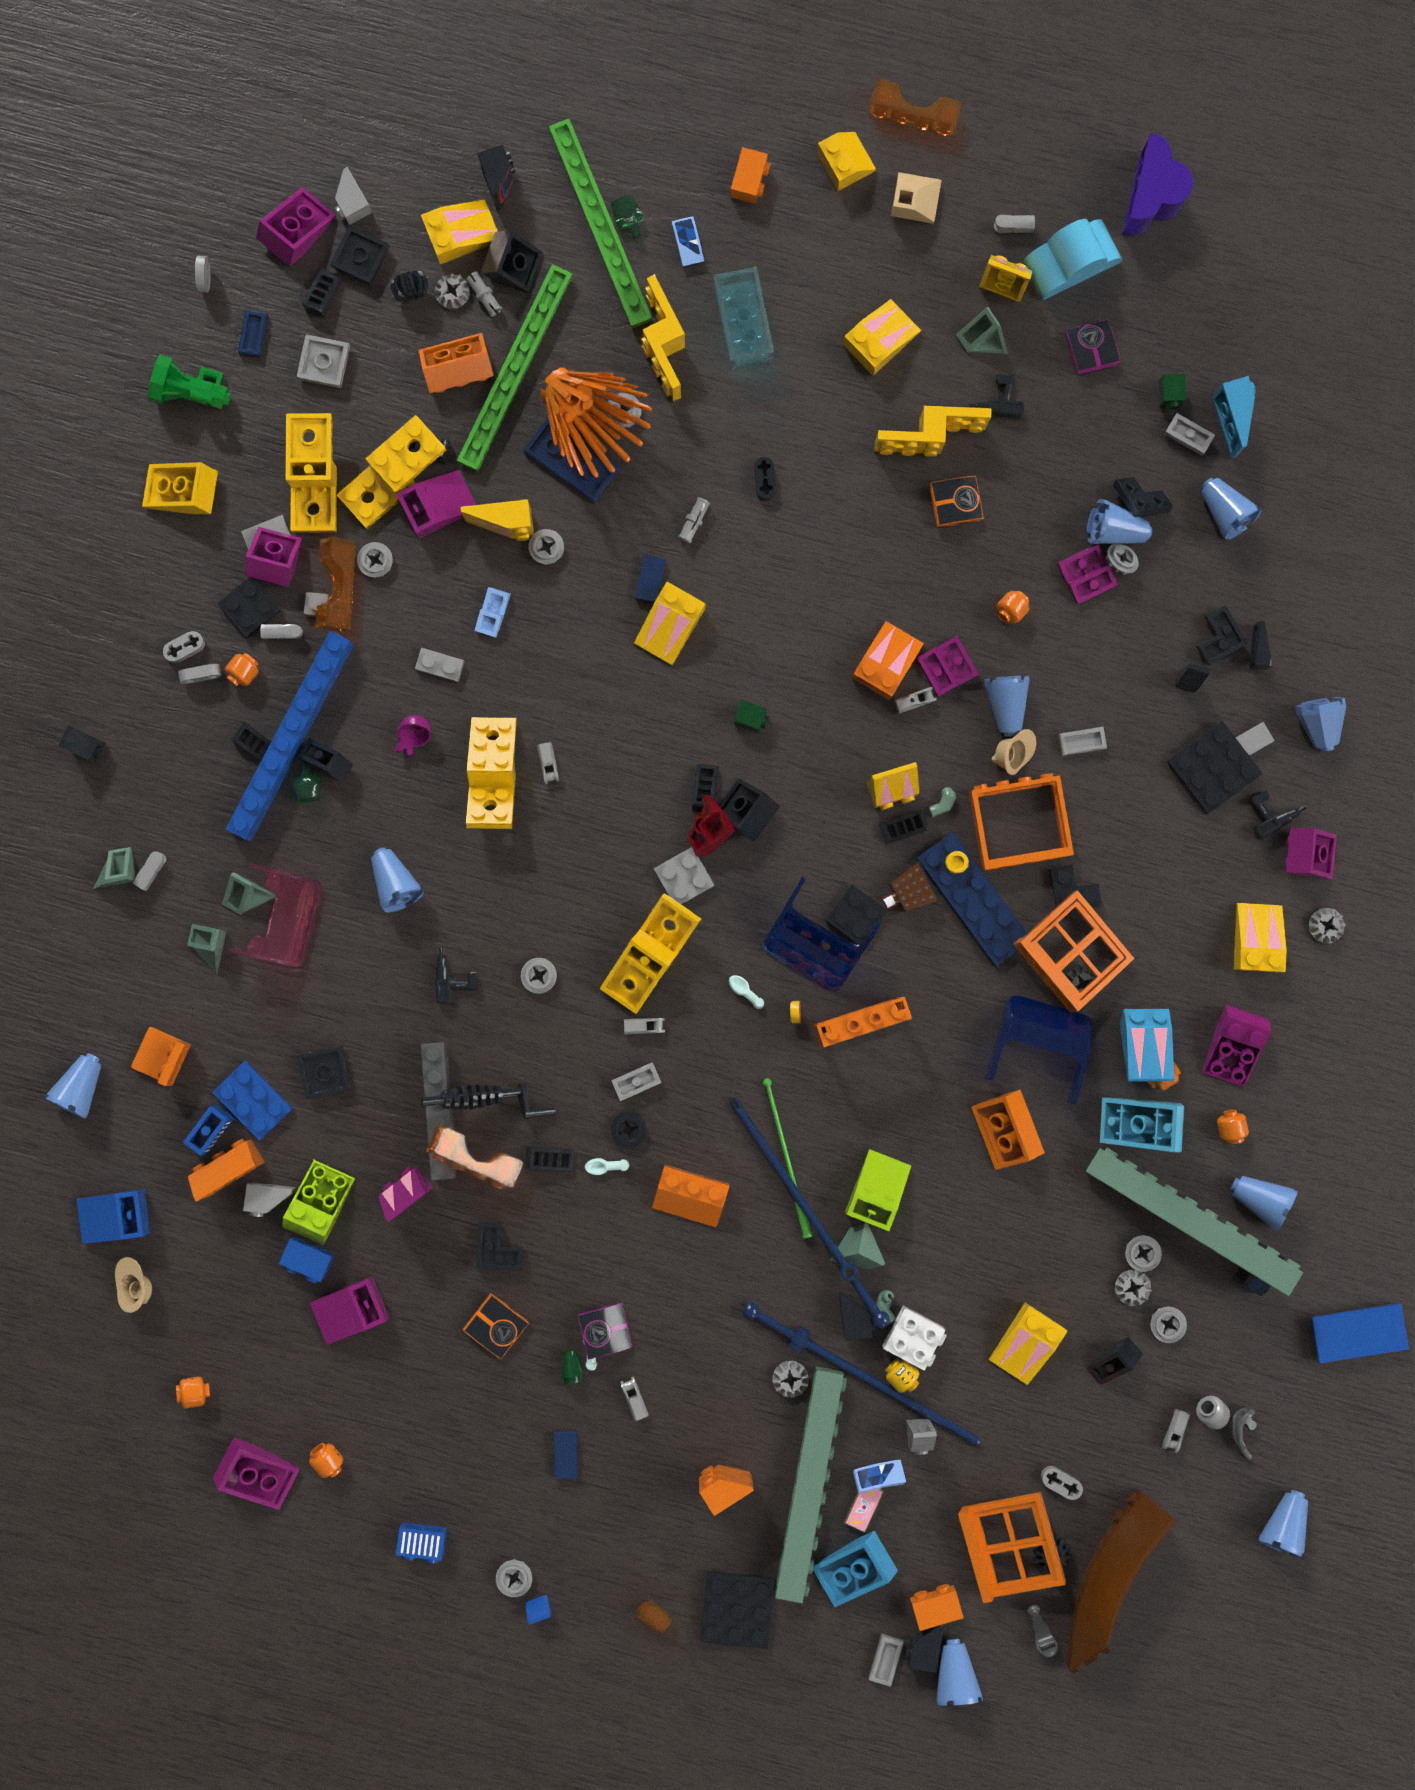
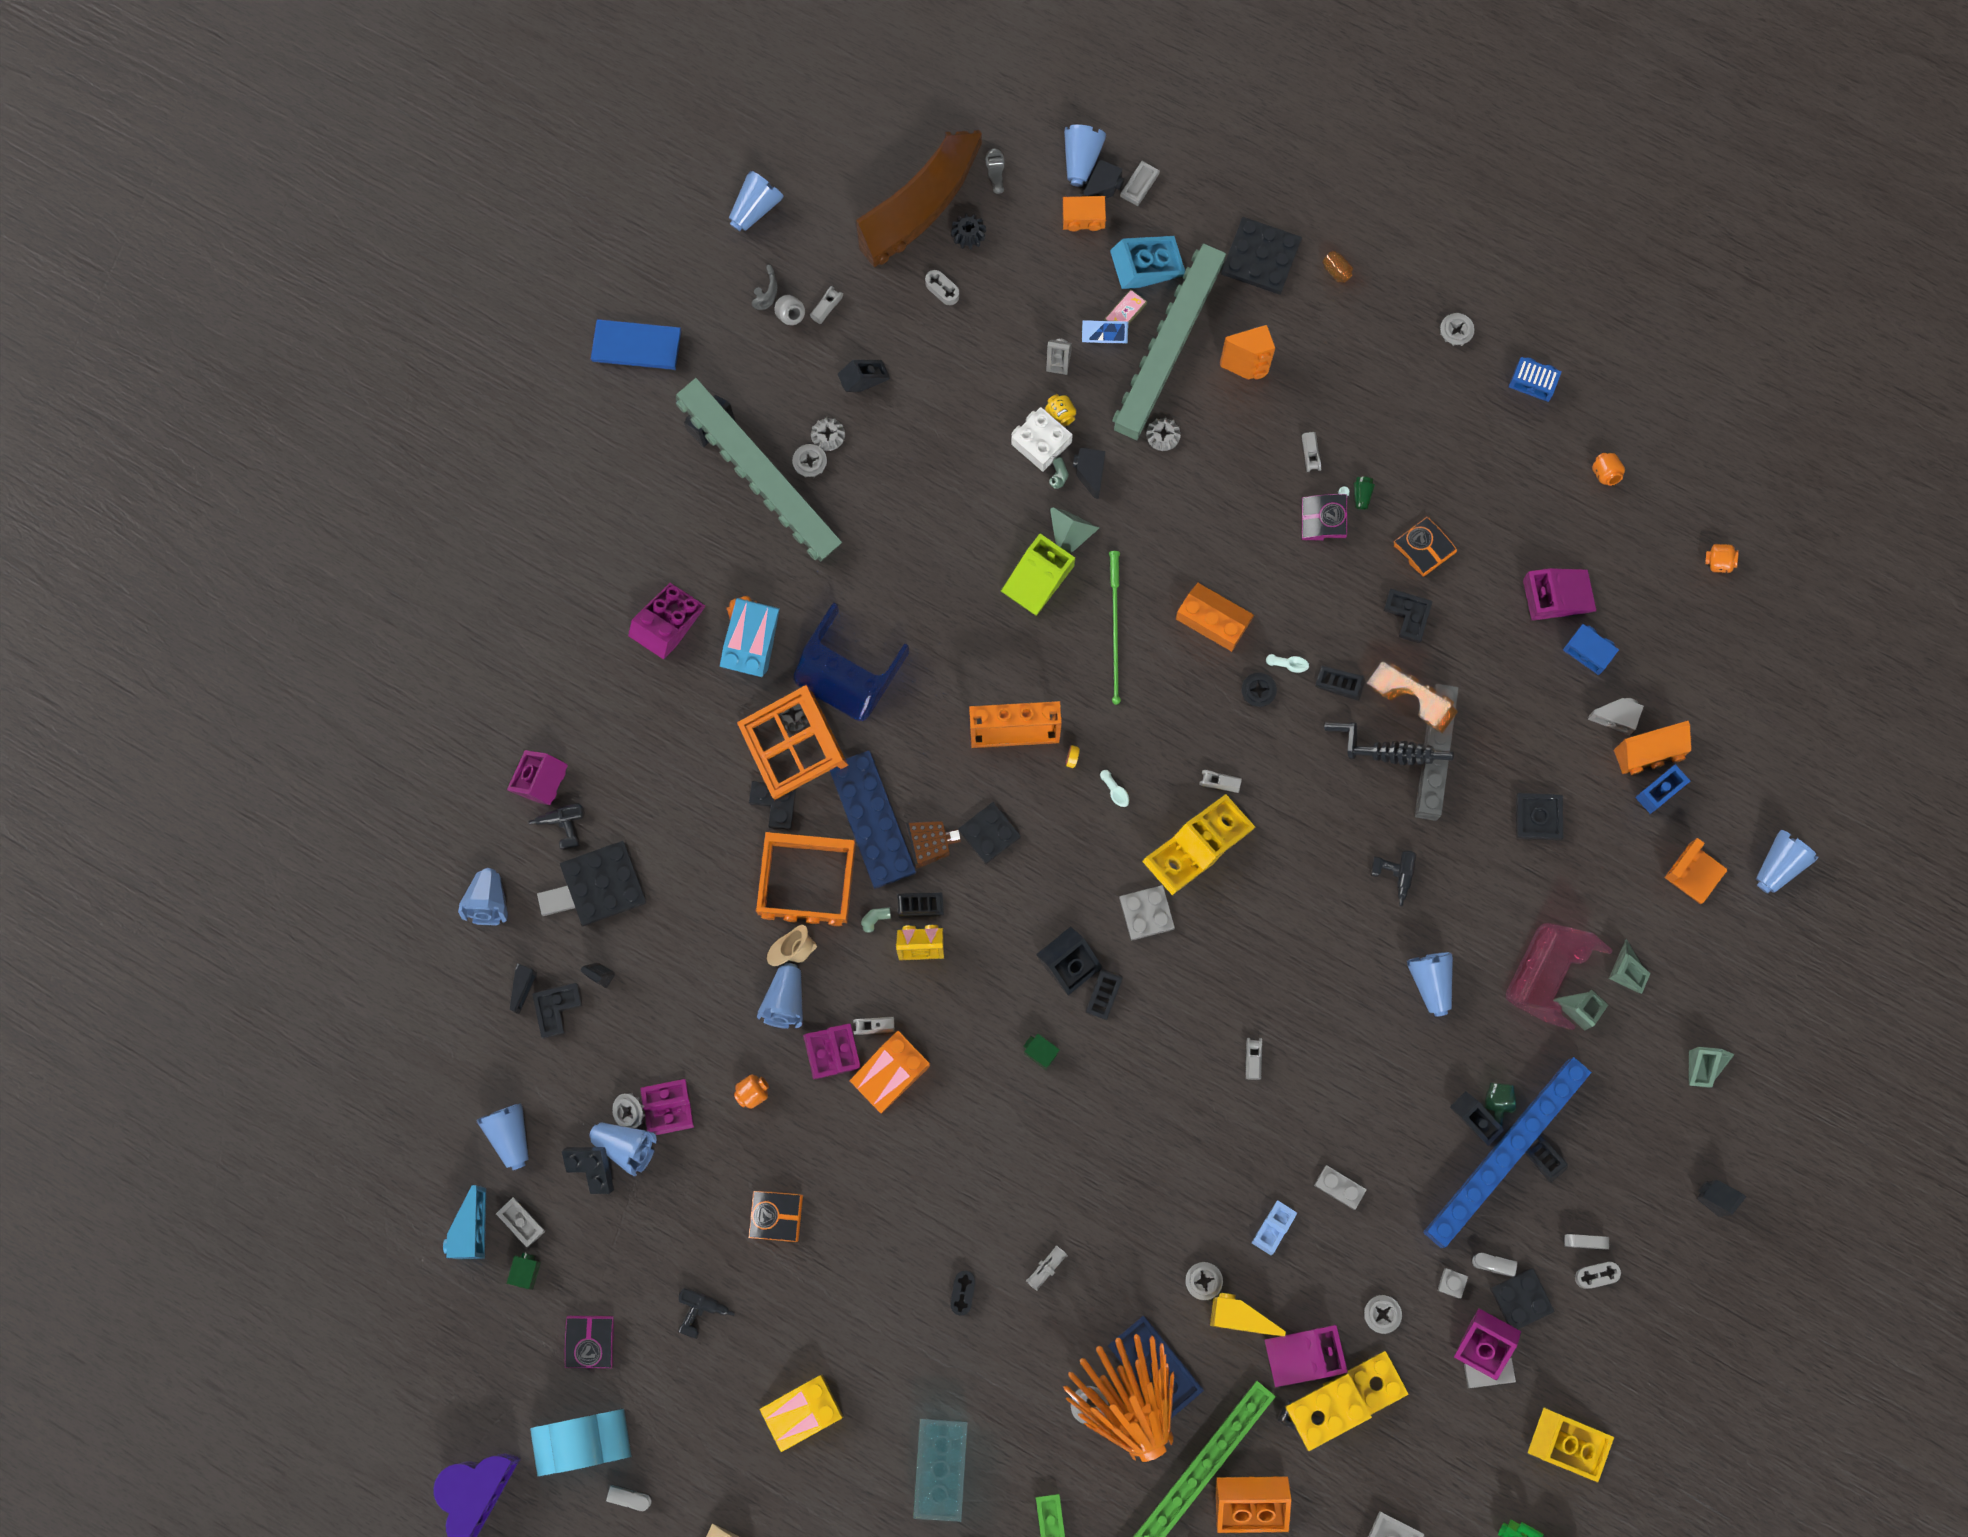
camera: 160 degrees left, 10 degrees down
(113, 1216) = (1768, 733): blue slope -> none
(132, 1285) = (1762, 665): tan piece -> none
(149, 870) = (1674, 1055): light grey bar -> none
(241, 669) = (1543, 1233): orange head -> none
(252, 1100) = (1614, 809): blue plate -> none
(255, 1474) = (1677, 473): magenta slope -> none
(311, 473) = (1430, 1421): yellow bracket -> none
(318, 1202) = (1569, 698): lime slope -> none
(338, 558) = (1433, 1269): clear orange arch -> none
(403, 1193) = (1486, 681): magenta slope -> none
(412, 732) = (1383, 1123): magenta piece -> none
(491, 773) = (1313, 1060): yellow bracket -> none
(528, 973) = (1314, 845): light grey gear -> none
(538, 1609) = (1441, 297): blue slope -> none
(565, 1454) = (1385, 421): dark blue tile -> none
(636, 1081) = (1240, 731): light grey plate -> none
(650, 579) = (1106, 1219): dark blue tile -> none
(662, 338) = (1031, 1468): yellow bracket -> none
(670, 623) = (1098, 1166): yellow slope -> none
(709, 828) = (1110, 950): dark red slope -> none
(800, 1340) = (1145, 464): dark blue bar -> none
(813, 948) = (1039, 811): clear blue windscreen -> none
(880, 1318) = (1068, 461): dark blue bar -> none
(932, 430) = (779, 1292): yellow bracket -> none
(956, 862) = (879, 855): yellow tile -> none
(980, 1551) = (1032, 246): orange window -> none
(983, 334) = (698, 1384): sand green slope -> none
(1006, 278) = (655, 1439): yellow slope -> none
(1008, 1130) = (901, 598): orange slope -> none
(1028, 1344) = (937, 410): yellow slope -> none
(1082, 741) = (722, 942): light grey tile -> none
(1142, 1124) = (775, 569): medium azure brick -> none
(1178, 1321) = (805, 385): light grey gear -> none
(1232, 1127) = (693, 548): orange head -> none
(1259, 938) = (612, 711): yellow slope -> none
(1264, 1199) = (684, 476): medium blue cone -> none
(1317, 929) = (544, 717): light grey gear -> none

